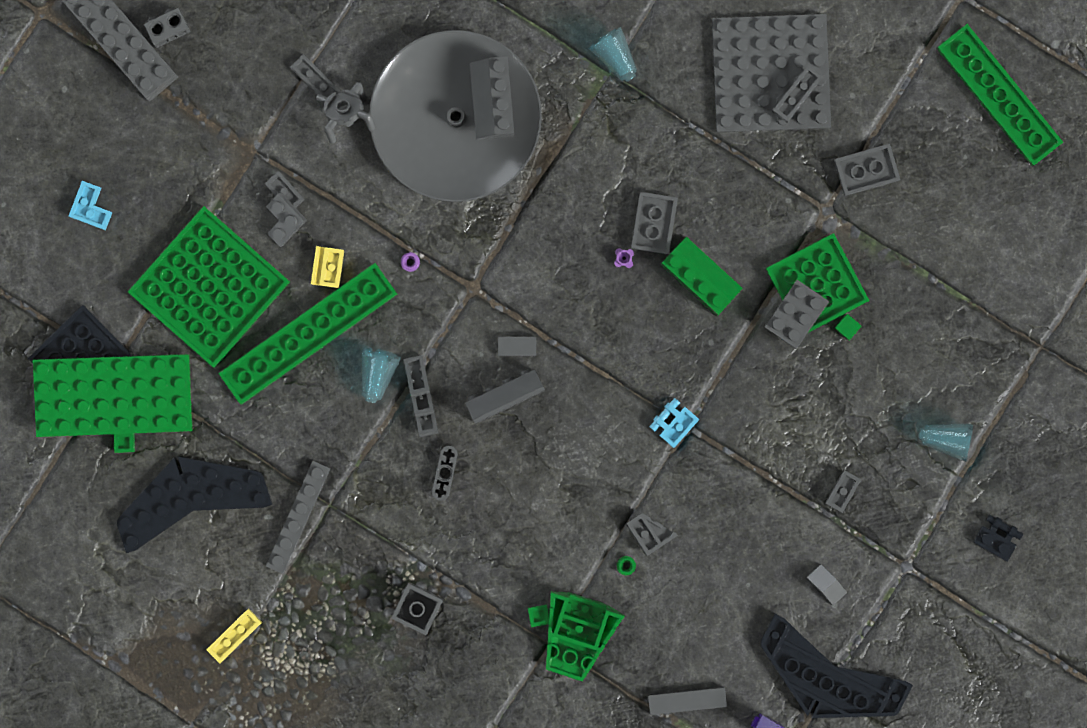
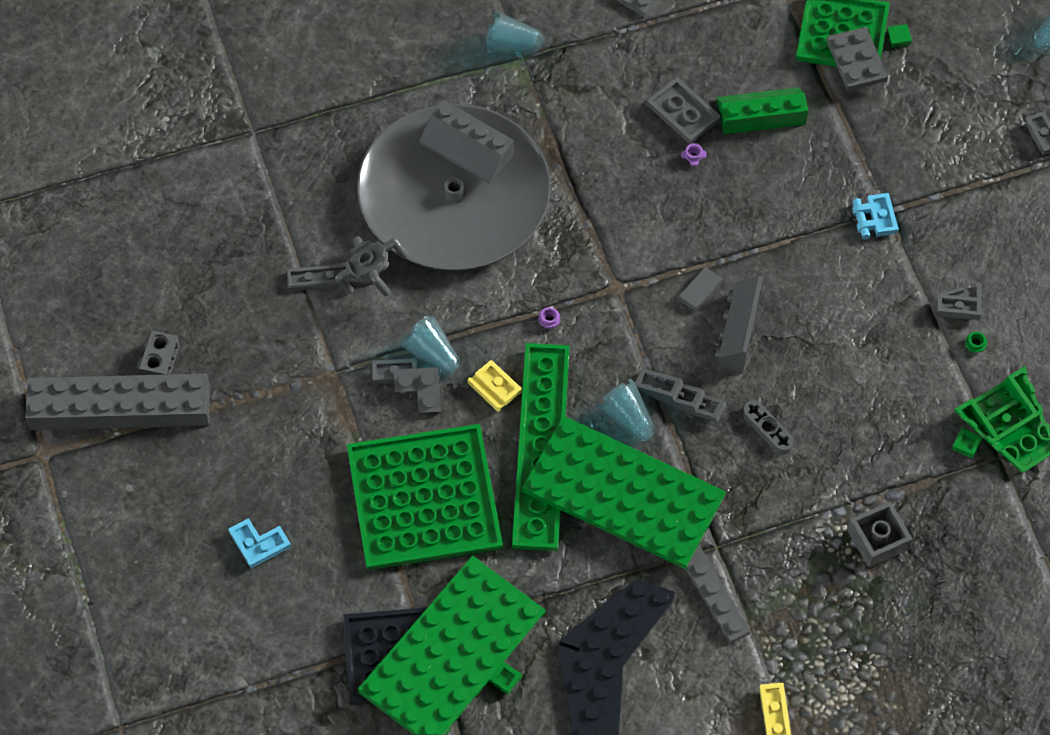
camera: 55 degrees left, 25 degrees down
(314, 416) = (624, 492): none -> green plate
(319, 203) = (431, 345): none -> clear light blue cone

